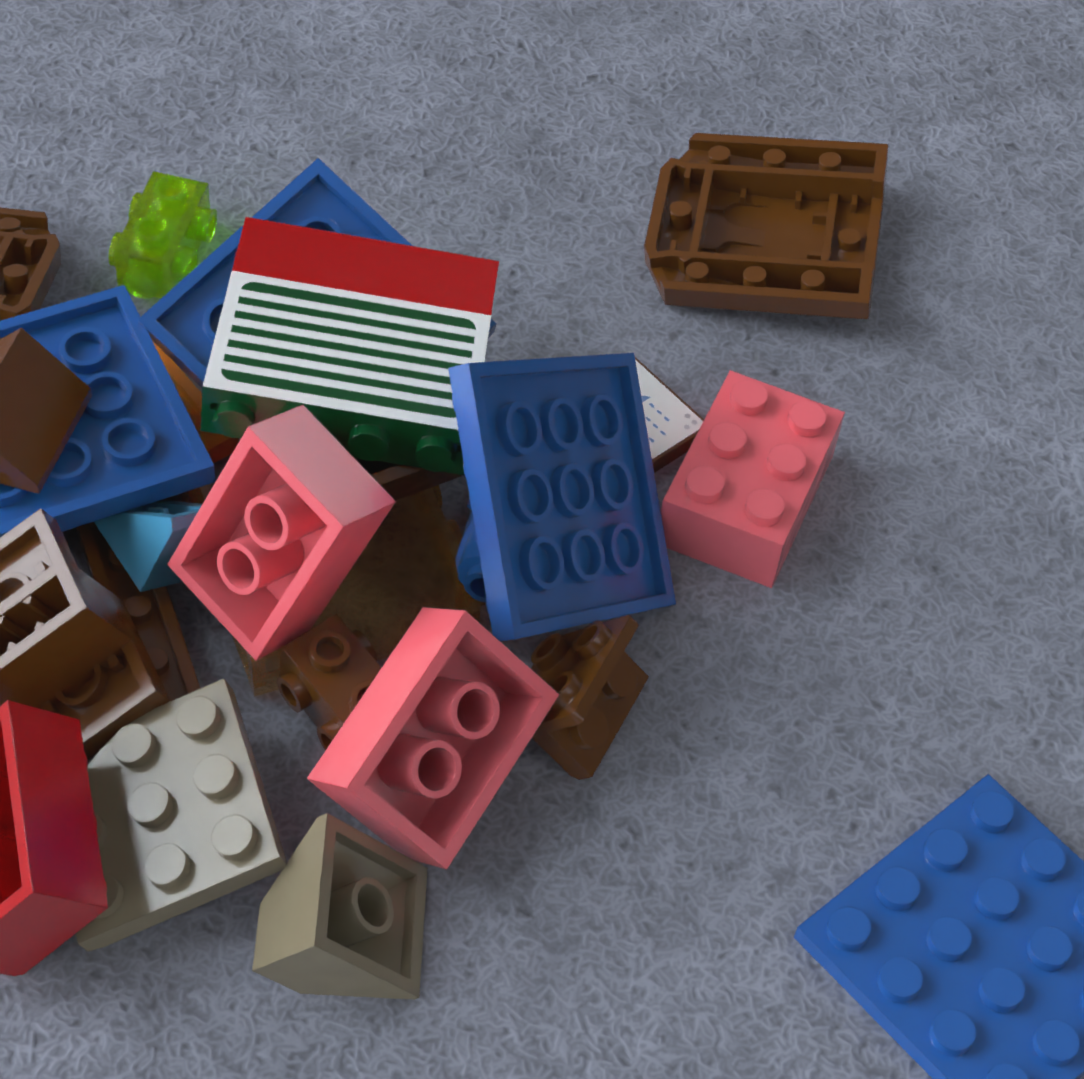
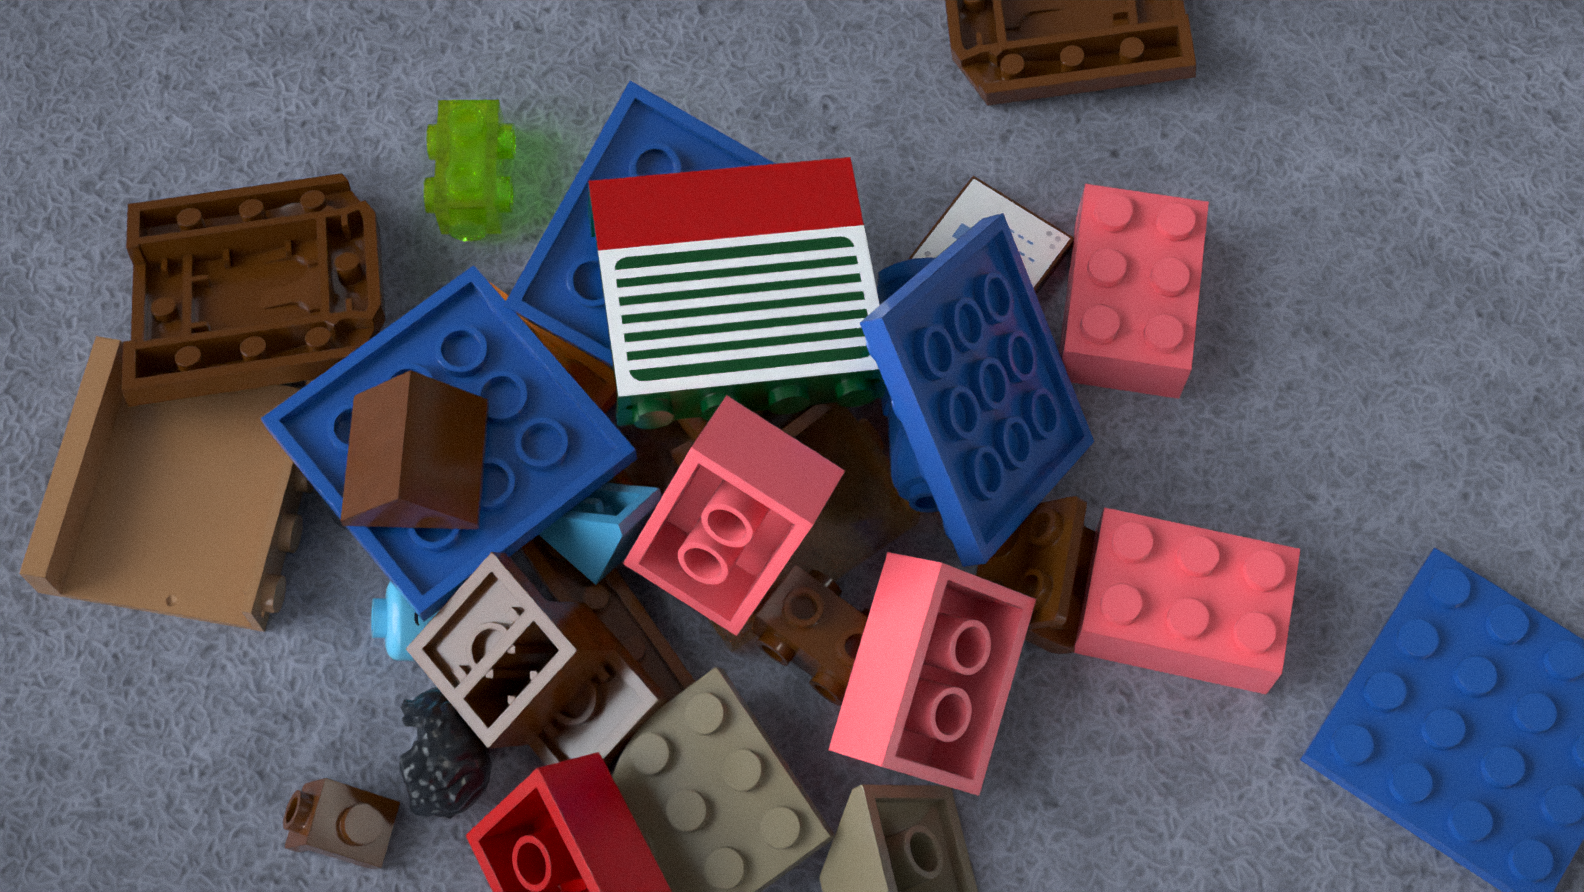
camera: 10 degrees left, 15 degrees up
(716, 753) = (1187, 601): none -> coral brick

